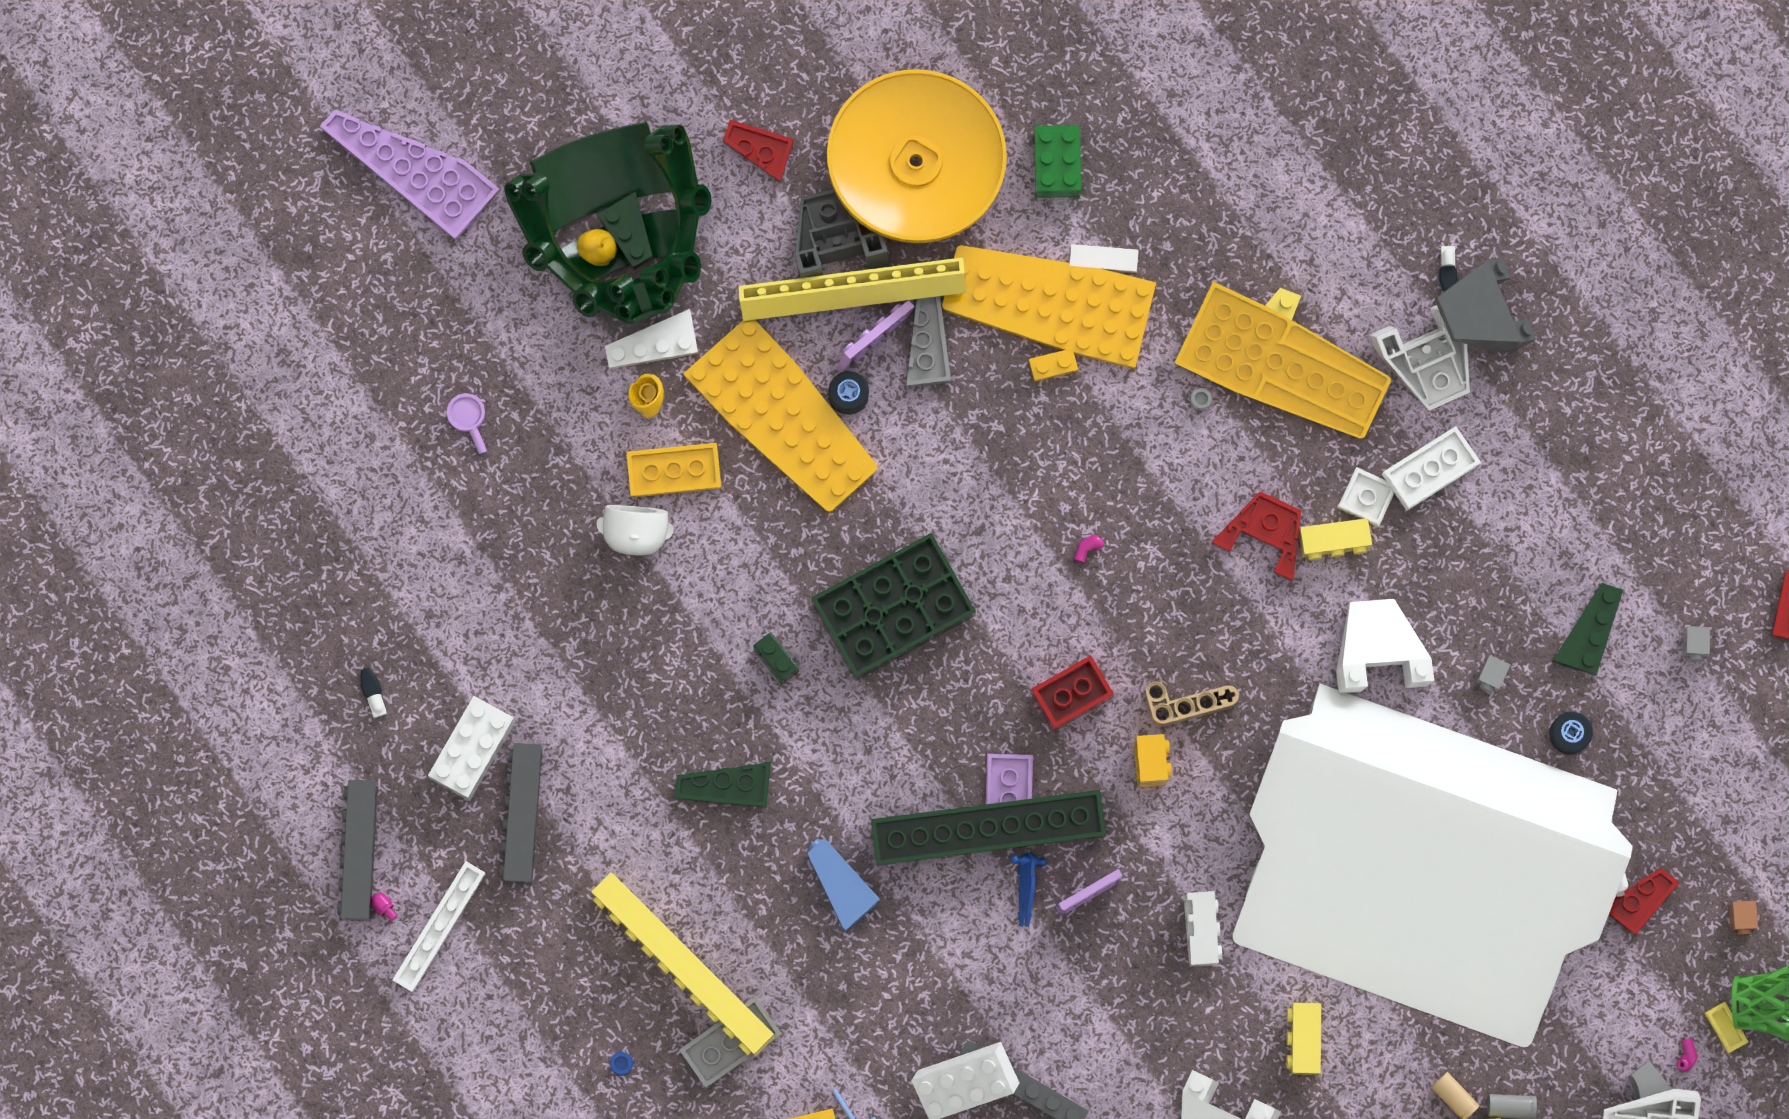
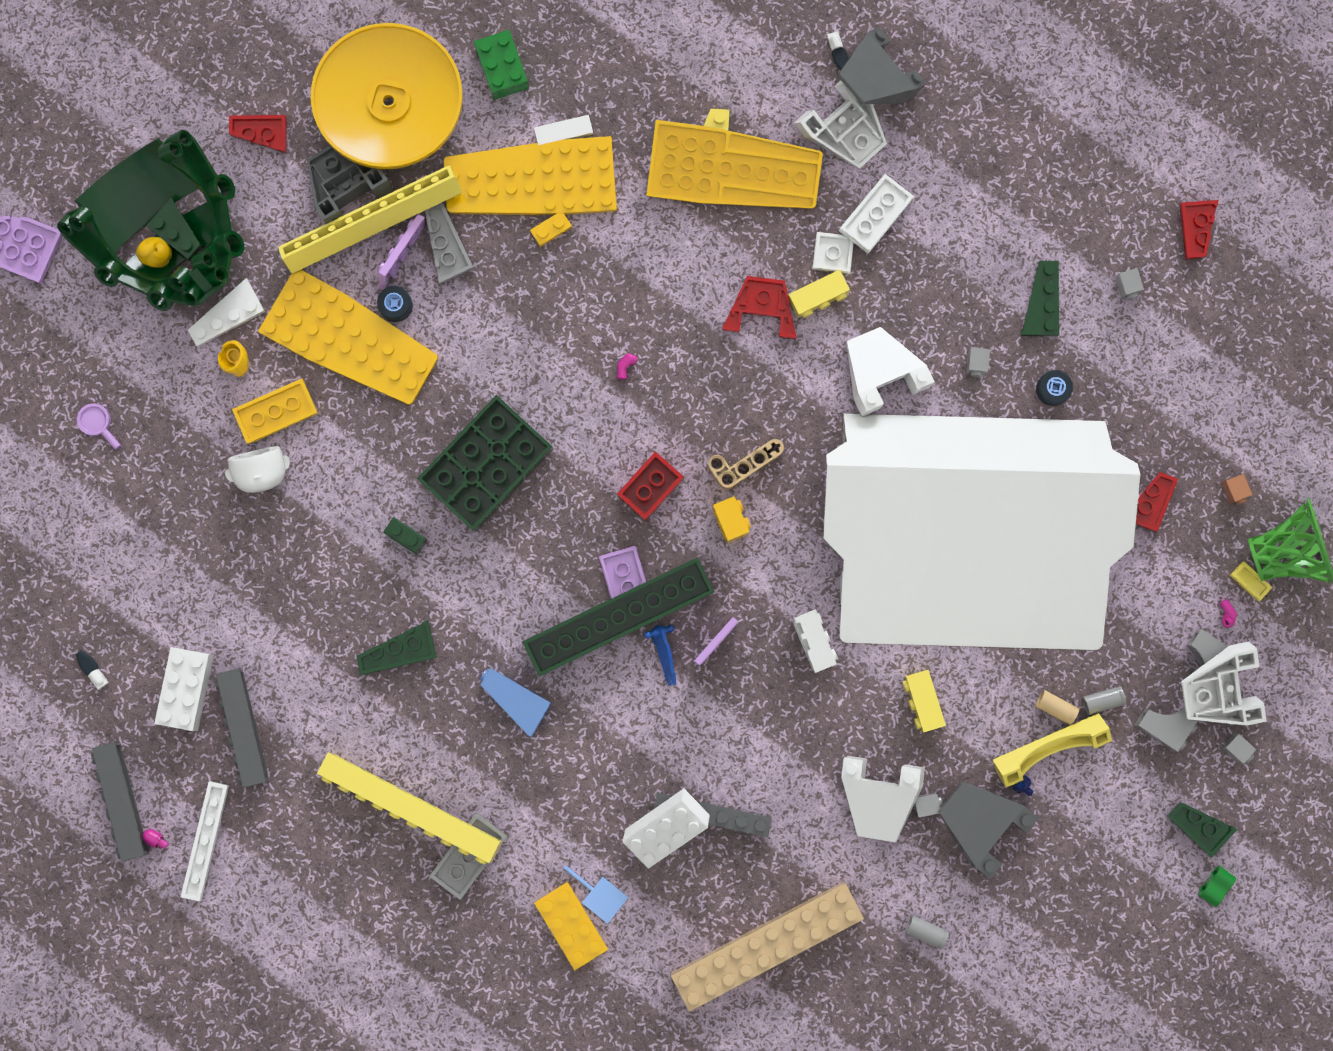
camera: 15 degrees left, 5 degrees up
(621, 1063) = (387, 902): blue tile -> none
(1200, 399) = (676, 218): light grey tile -> none

